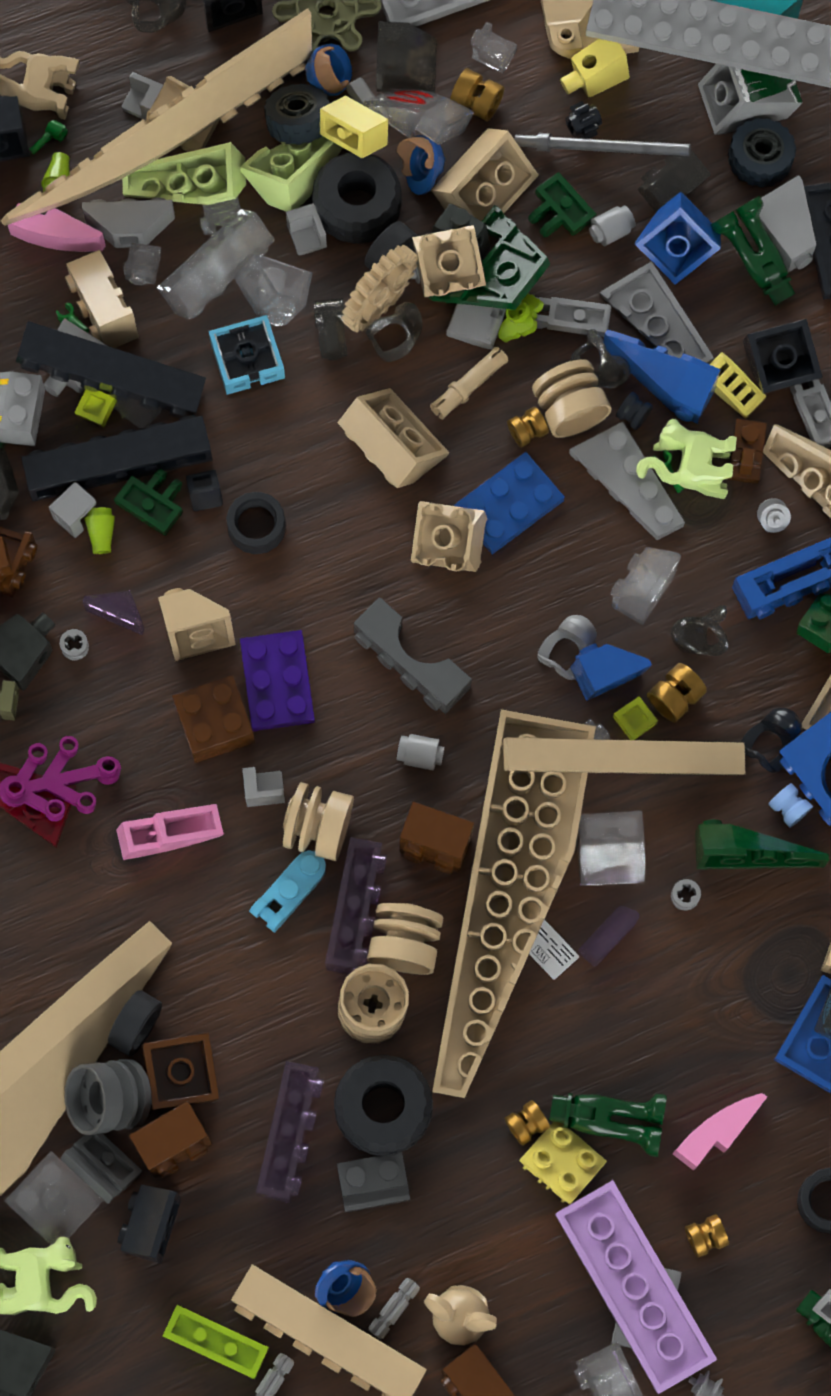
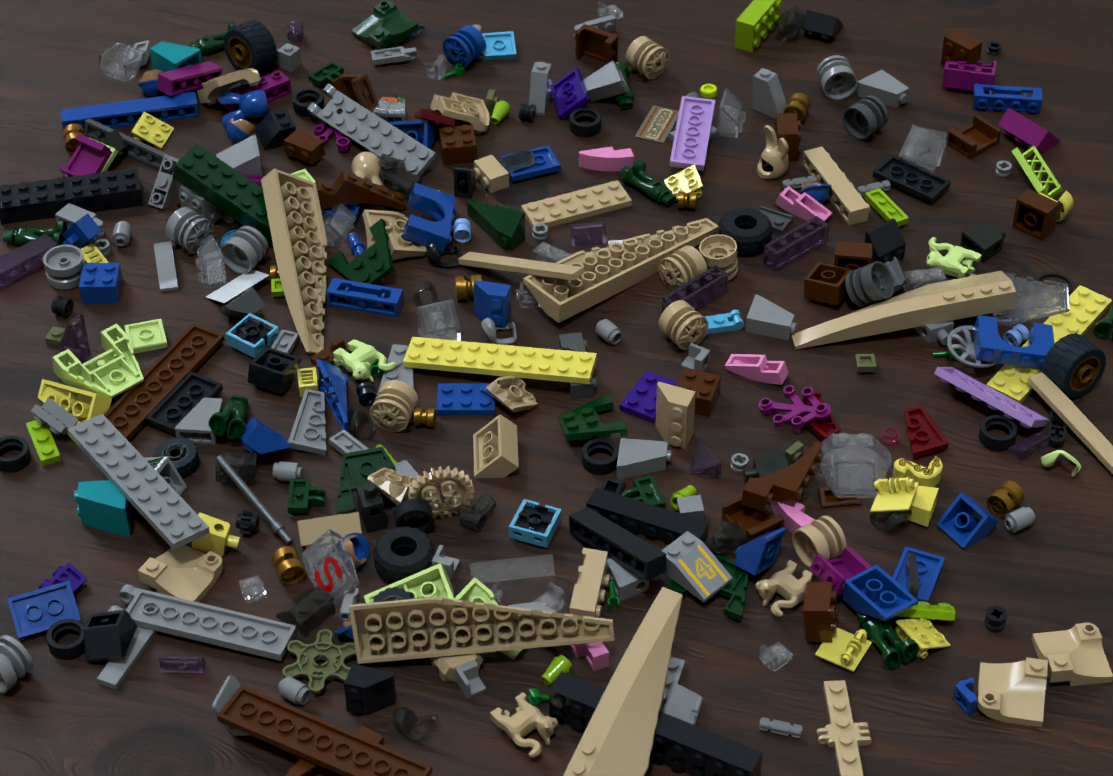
camera: 140 degrees left, 30 degrees down
(26, 953) = (865, 362): none -> olive plate
(134, 1023) = (830, 299): black tyre -> none
(202, 553) = (641, 457): none -> light grey slope
(217, 941) = (769, 319): none -> light grey slope
(274, 288) = (492, 529): clear slope -> none
(320, 556) = (584, 421): none -> dark green wing
(343, 1244) = (801, 205): none -> bright pink slope
(353, 126) = (373, 572): light yellow brick -> none
(435, 838) = (634, 292): reddish brown brick -> none
(459, 391) = (433, 451): tan pin -> none
(507, 576) = (500, 360): none -> light yellow plate
(683, 996) = (577, 204): none -> tan plate
(706, 1235) = (646, 136): pearl gold wheel -> none
(725, 1302) = (657, 124): none -> sticker
(773, 515) = (349, 322): light grey wheel -> none

